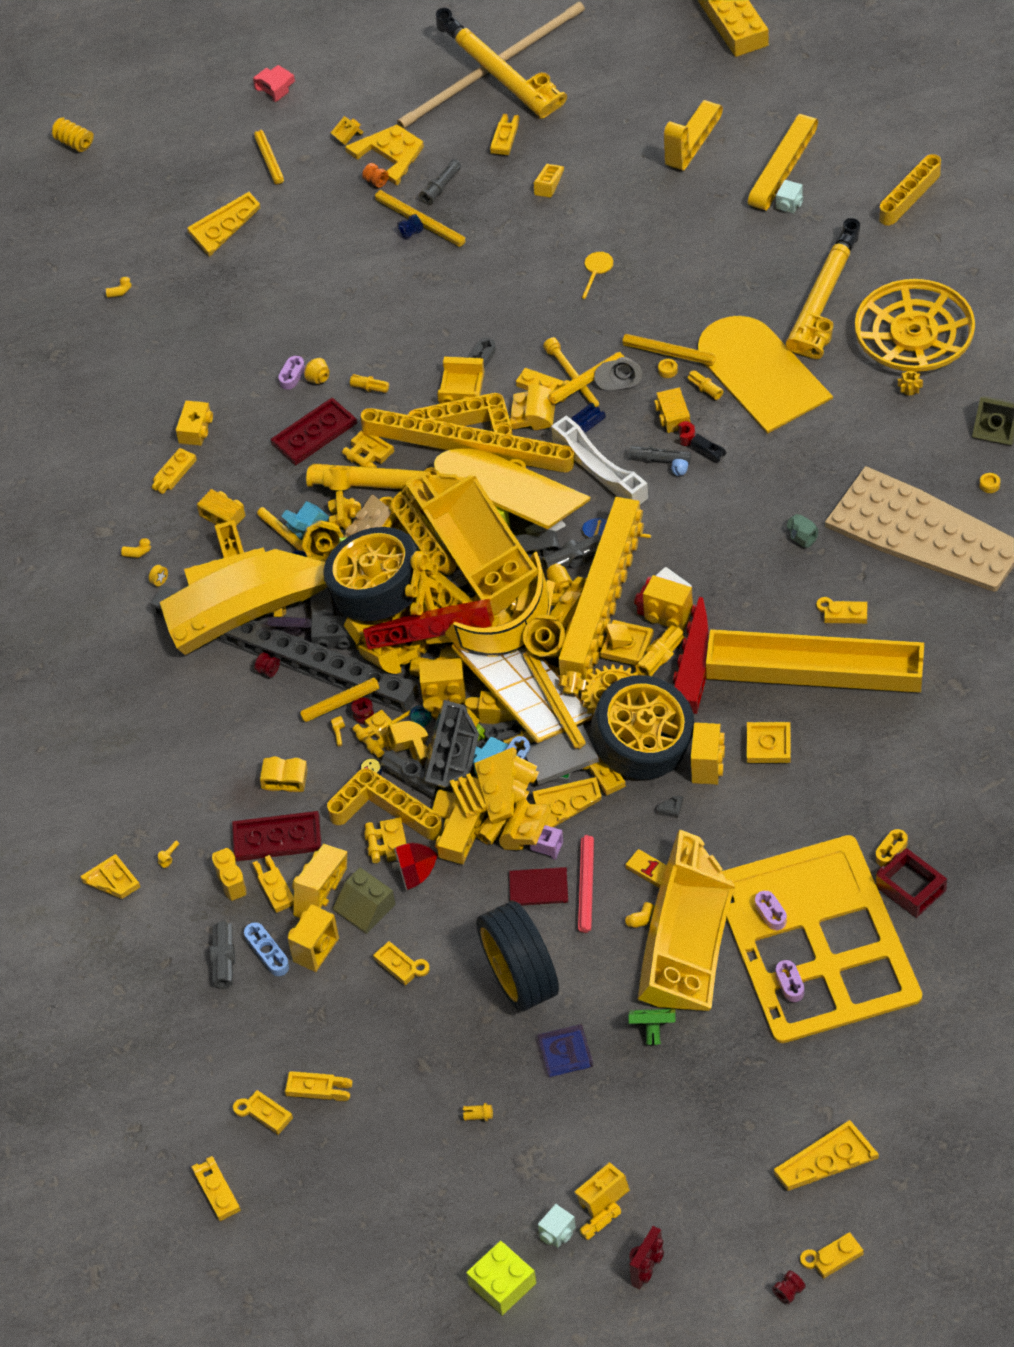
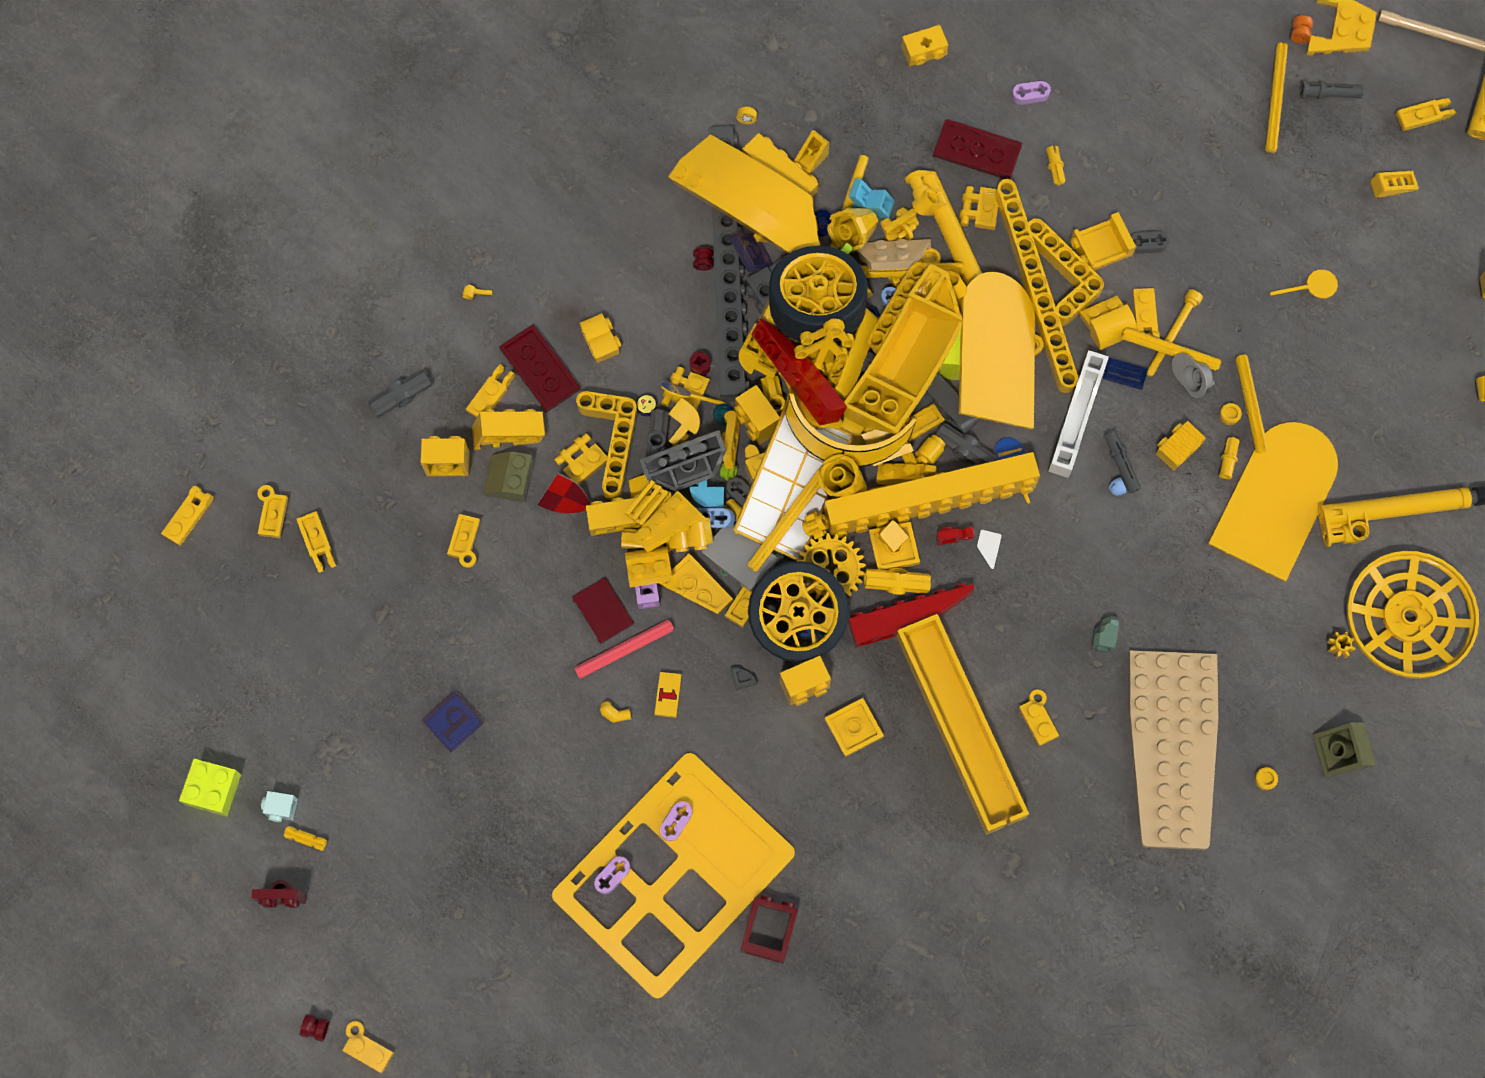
camera: 55 degrees right, 20 degrees up
(111, 878) = (428, 263): yellow wing -> none
(136, 552) = (765, 84): yellow arm -> none
(173, 470) = (866, 60): yellow hinge -> none
(219, 508) = (844, 124): yellow brick -> none
(229, 874) = (473, 356): yellow brick -> none
(266, 958) = (437, 413): light blue beam -> none
(316, 371) = (1041, 113): yellow cone -> none
(337, 724) = (675, 351): yellow hand -> none
(339, 699) = (696, 340): yellow axle -> none
(409, 226) = (1259, 94): clear blue wheel -> none
(478, 1112) = (356, 684): yellow pin -> none
(517, 955) = (496, 636): black wheel -> none
(602, 1189) = (329, 825): yellow hinge -> none
(652, 1019) = (511, 778): bright green tile -> none
(667, 602) = (950, 560): yellow brick -> none
(686, 929) = (616, 760): yellow slope -> none
(688, 437) = (1157, 490): black piece -> none
(830, 1155) = (459, 999): yellow wing -> none
(888, 845) = (798, 899): yellow beam -> none

